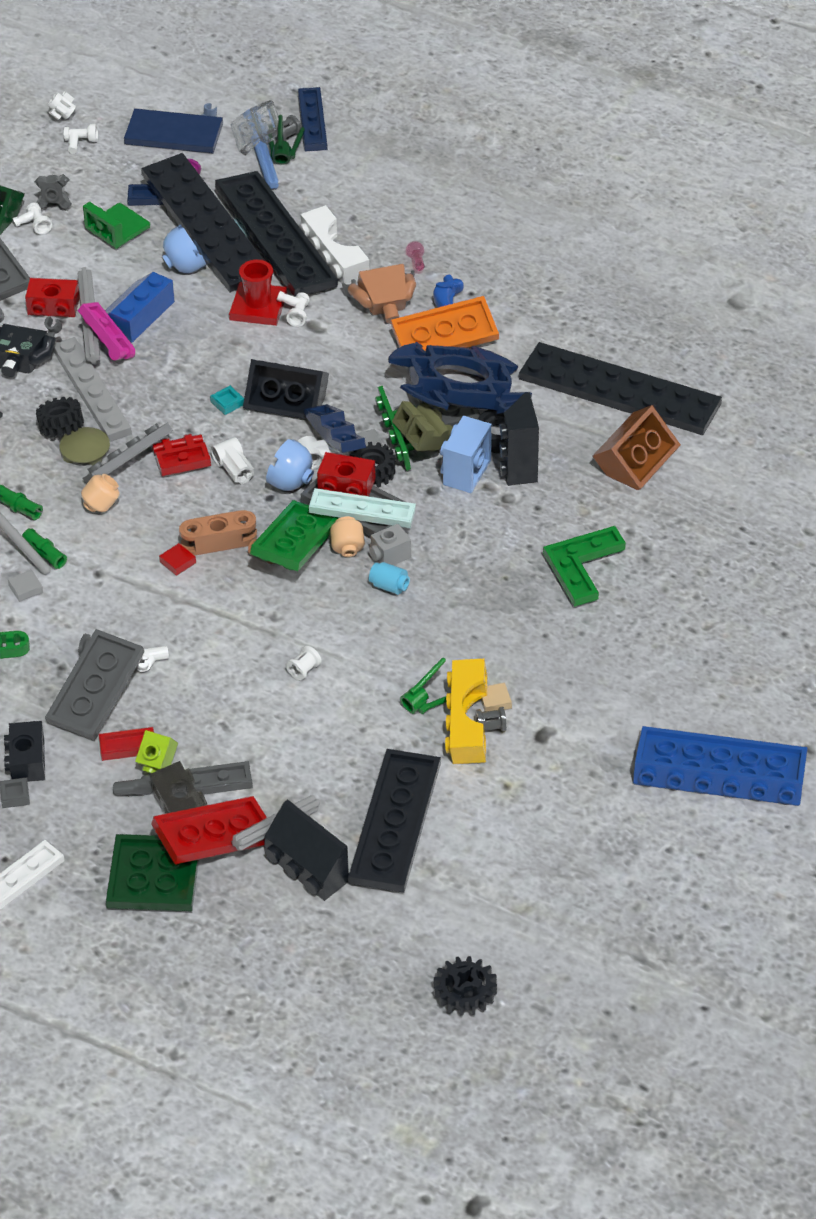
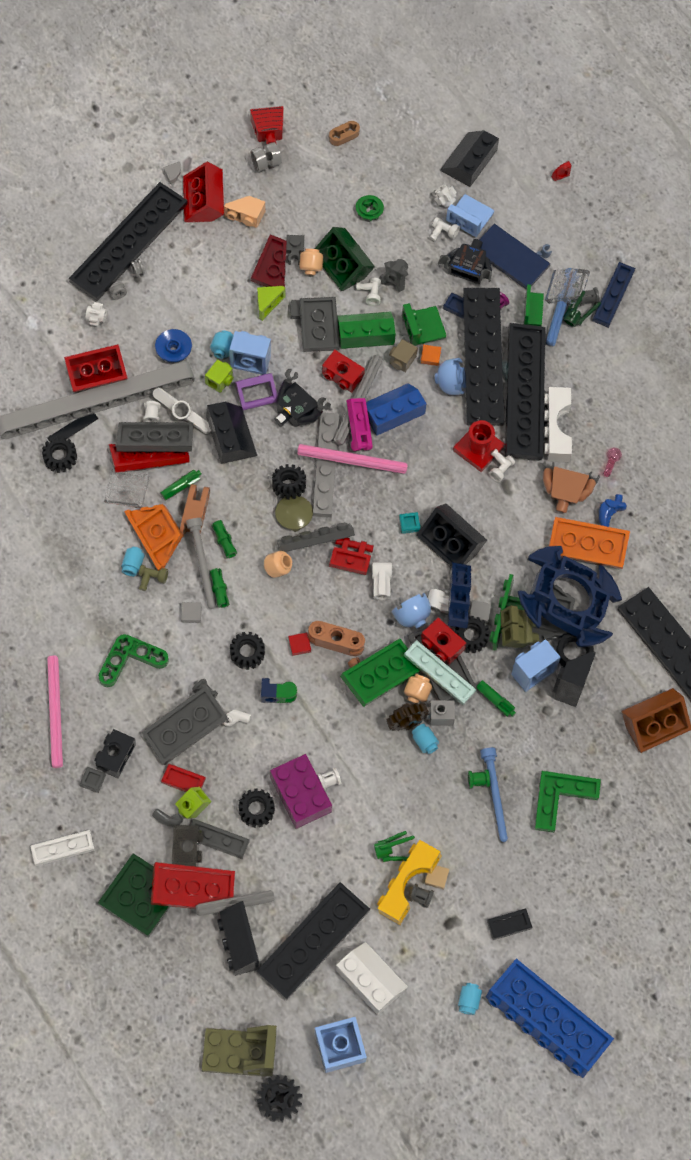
camera: 25 degrees right, 20 degrees up
(57, 253) = (366, 330): none -> green slope
(66, 64) = (471, 156): none -> black slope
(105, 112) = (469, 215): none -> light blue bracket
(112, 257) = (403, 355): none -> dark tan brick
(119, 366) = (351, 458): none -> bright pink axle
(119, 578) = (244, 661): none -> black tyre
(130, 149) = (468, 262): none -> torso
(144, 247) = (431, 355): none -> orange tile
(178, 38) = (562, 171): none -> red tile
(183, 611) = (278, 692): none -> leg
(228, 159) = (533, 307): none -> green panel
(236, 716) = (262, 818): none -> black tyre
(278, 686) = (300, 791): none -> magenta brick
(355, 559) = (407, 716): none -> dark brown gear
(401, 959) = (240, 1051): none -> olive bracket
(443, 509) = (496, 699): none -> green piece
(473, 562) = (489, 756): none -> medium blue piece
(477, 586) = (478, 779): none -> green bush
(487, 826) = (371, 978): none -> white slope
(500, 896) = (340, 1044): none -> light blue brick
(610, 703) = (509, 924): none -> black tile
(618, 788) = (469, 999): none -> medium azure brick

